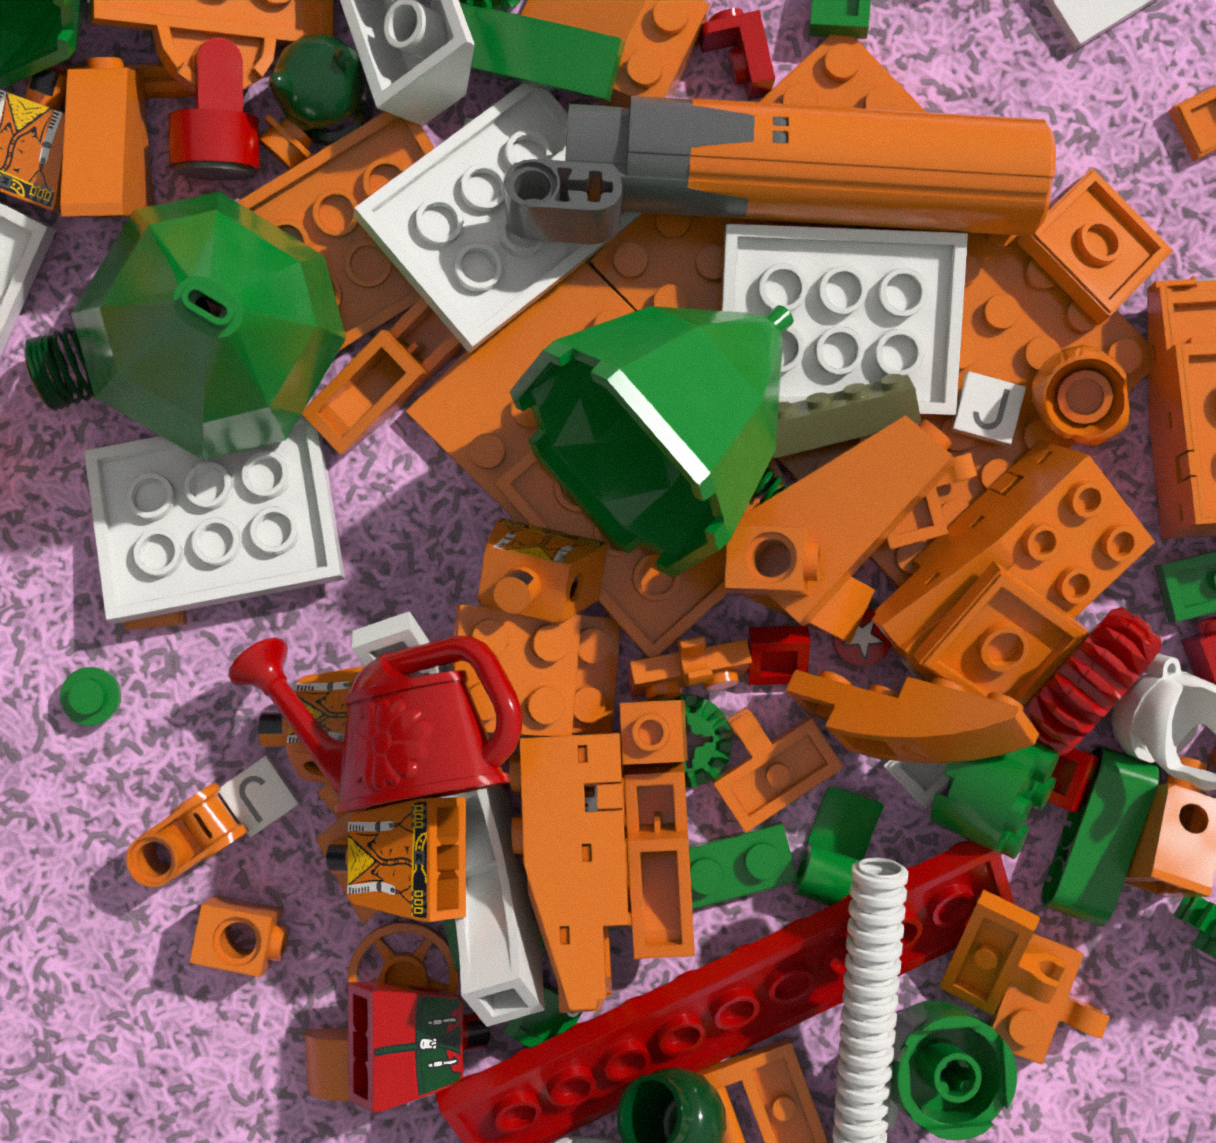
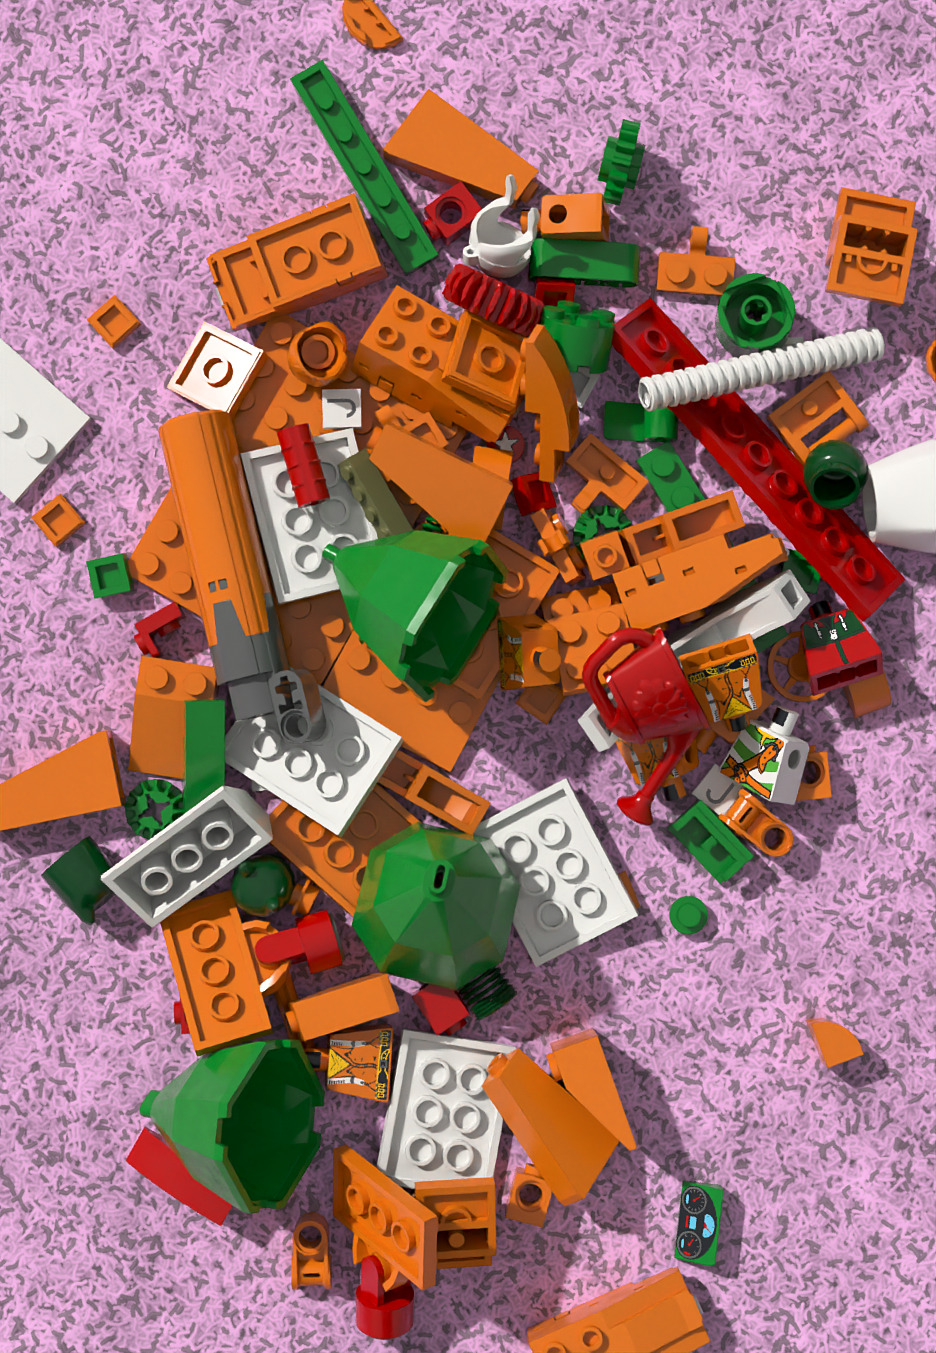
camera: 110 degrees left, 0 degrees up
(56, 290) = (441, 1008): none -> red brick
(185, 761) = (710, 841): none -> green hinge
(273, 887) = (769, 758): none -> torso
(462, 573) = (541, 701): none -> orange tile
(743, 555) = (486, 530): orange brick -> none
(923, 319) = (303, 465): none -> red axle
(995, 955) = (678, 308): orange plate -> none

